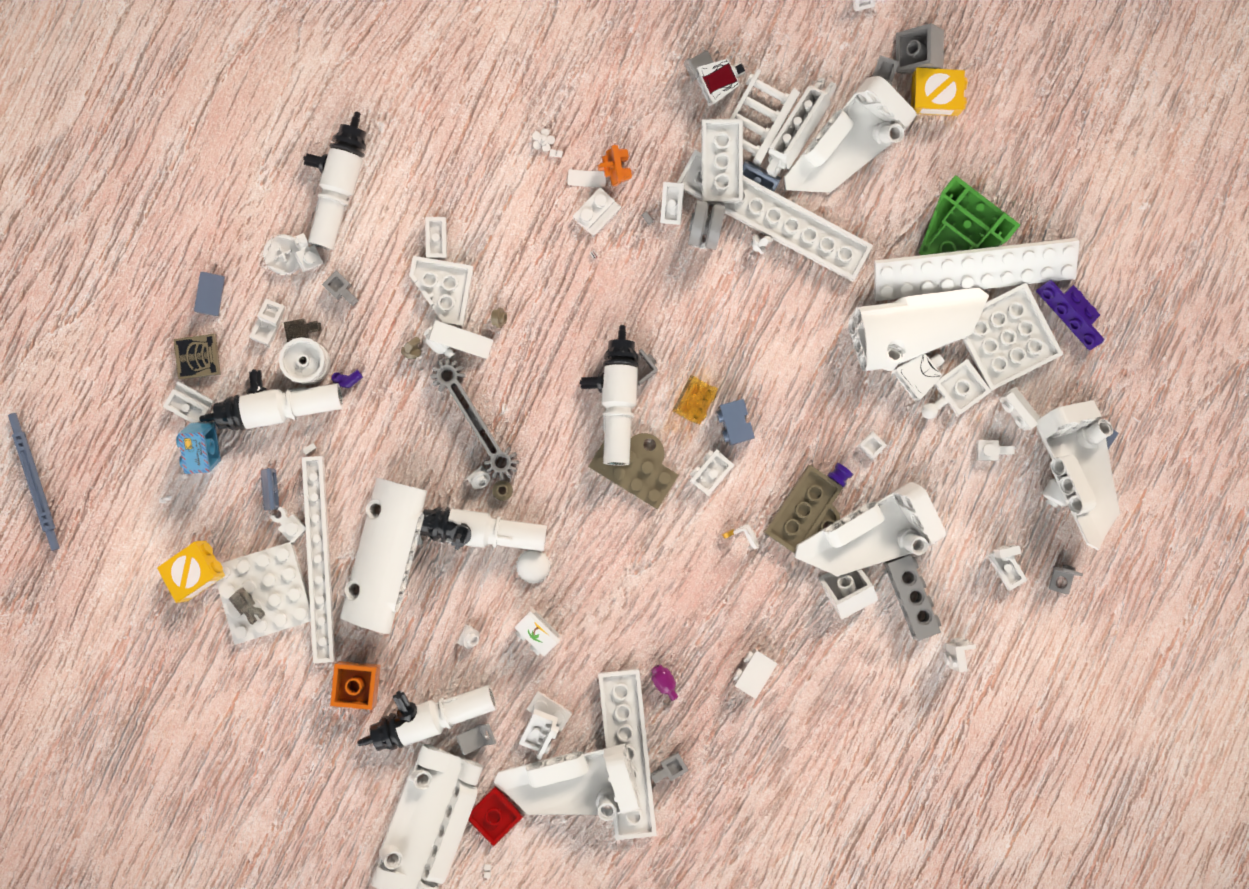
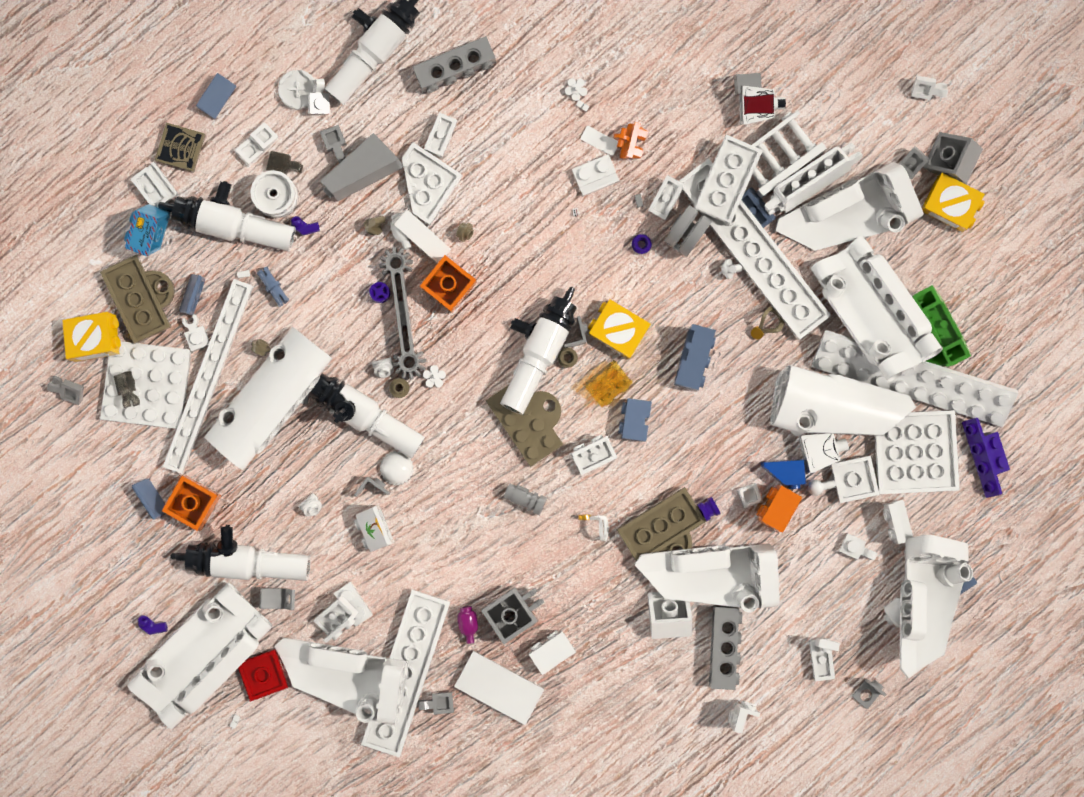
camera: 25 degrees right, 0 degrees up
(191, 630) = (67, 389): none -> light grey plate
(221, 514) = (138, 297): none -> dark tan plate
(314, 698) = (149, 498): none -> sand blue slope
(342, 448) = (273, 286): none -> sand blue pin
(355, 510) = (260, 347): none -> dark tan plate
(368, 818) = (151, 627): none -> dark purple arm
(375, 302) = (361, 168): none -> light grey slope
(408, 169) = (459, 55): none -> light grey brick
(440, 409) = (378, 294): none -> dark purple wheel
(505, 373) = (448, 284): none -> orange brick
(521, 588) = (377, 482): none -> light grey bracket
(530, 465) = (433, 377): none -> white plant
(651, 388) = (562, 353): none -> dark tan plate
(661, 540) = (522, 497): none -> light grey axle
(671, 251) = (641, 237): none -> dark purple plate
(682, 344) = (618, 328): none -> yellow brick
(699, 642) = (523, 617): none -> light grey hinge
(720, 728) = (499, 687): none -> white tile
(765, 339) = (695, 357): none -> sand blue wedge
(812, 290) = (758, 331): none -> dark tan piece
(898, 408) = (787, 472): none -> blue slope
(905, 445) = (778, 508): none -> orange brick
(914, 220) = (876, 309): none -> white panel

